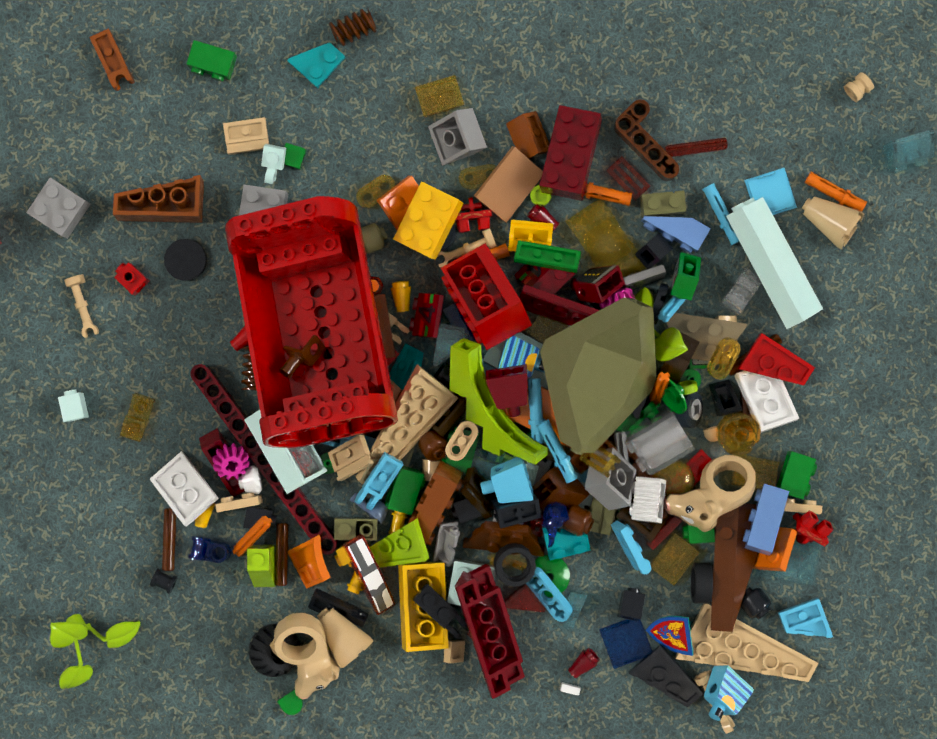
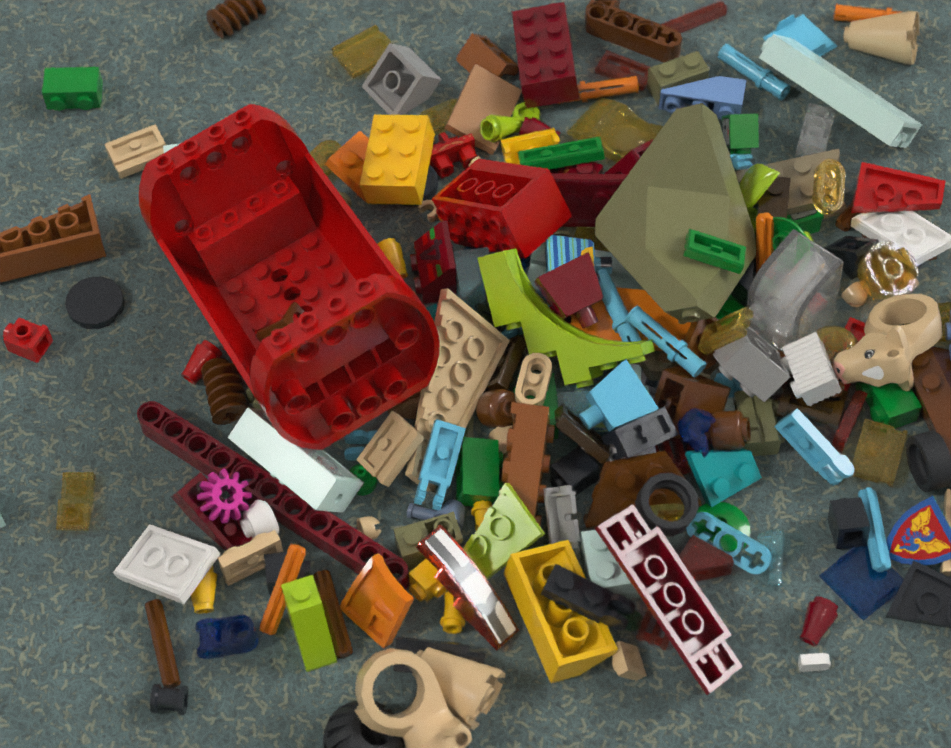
camera: 15 degrees left, 30 degrees down
(317, 63) = (204, 62): teal wing -> none
(322, 502) = (367, 526): none -> tan hinge
(514, 208) = (498, 127): none -> lime cone
(598, 395) = (714, 251): none -> green tile
(648, 609) = (876, 541): none -> medium azure axle

